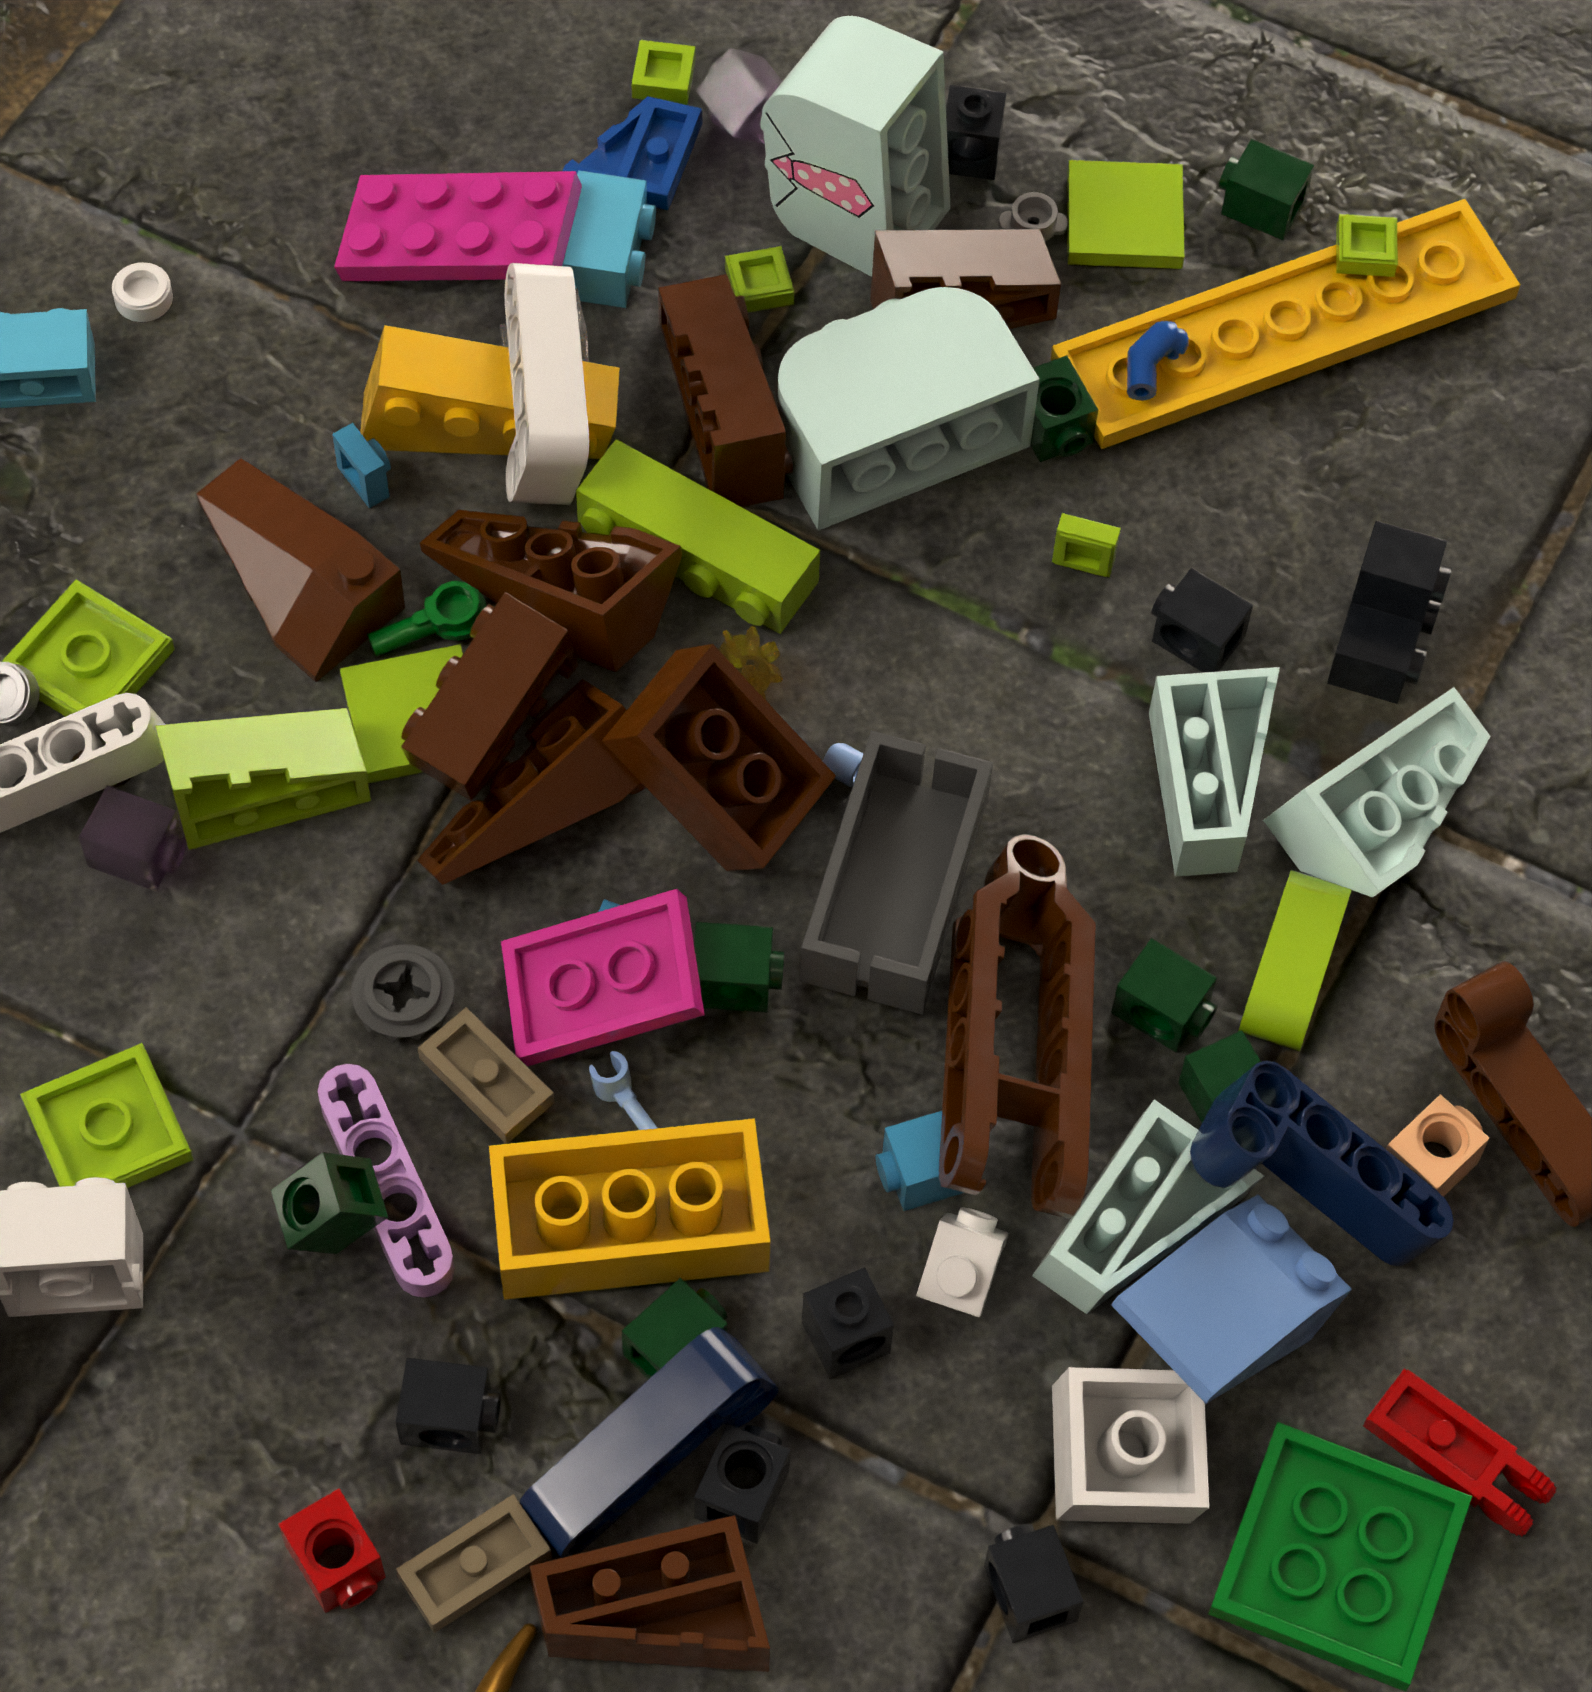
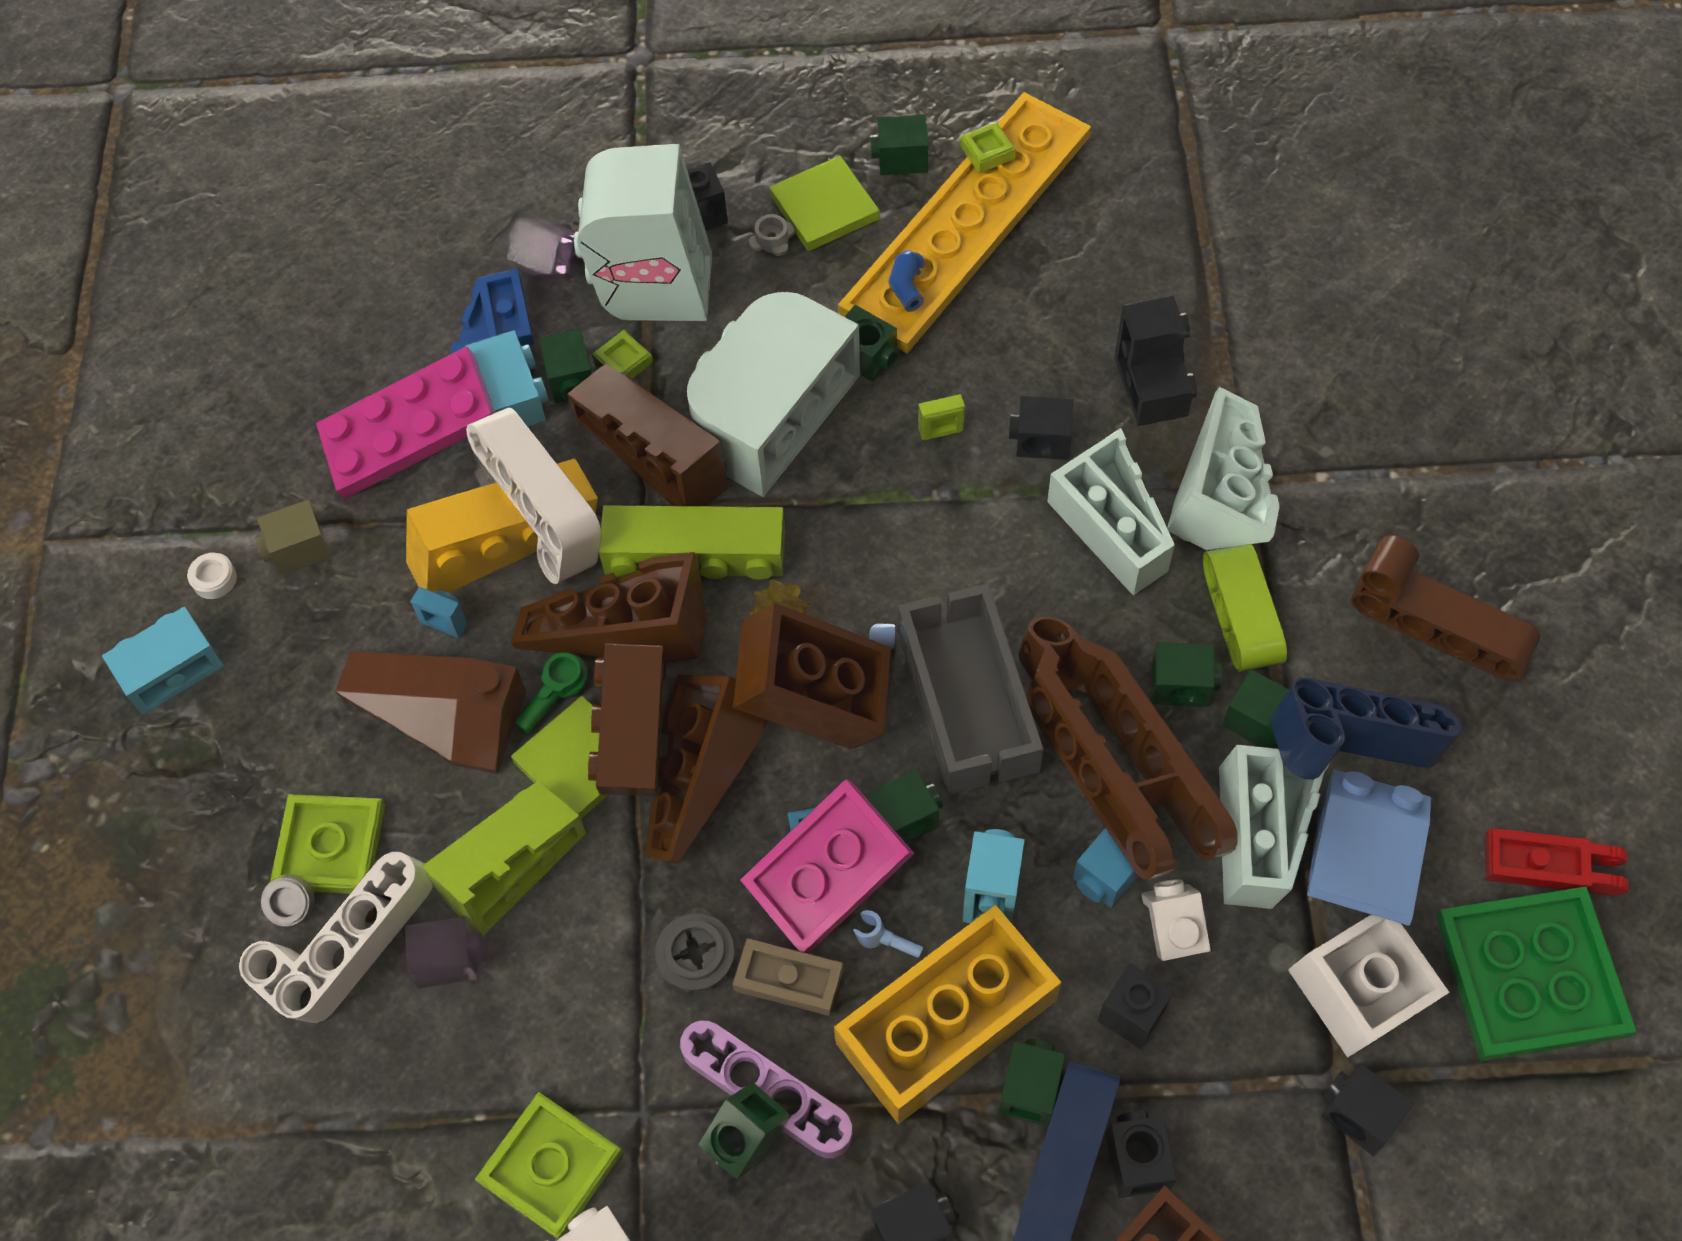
camera: 25 degrees left, 0 degrees up
(253, 295) = (292, 538): none -> olive brick
(663, 71) = (476, 258): lime plate -> none
(685, 248) = (565, 362): none -> dark green brick
(779, 1086) = (992, 874): none -> medium azure brick
(1001, 266) = (770, 270): wedge -> none
(1450, 1127) = (1416, 661): light nougat brick -> none

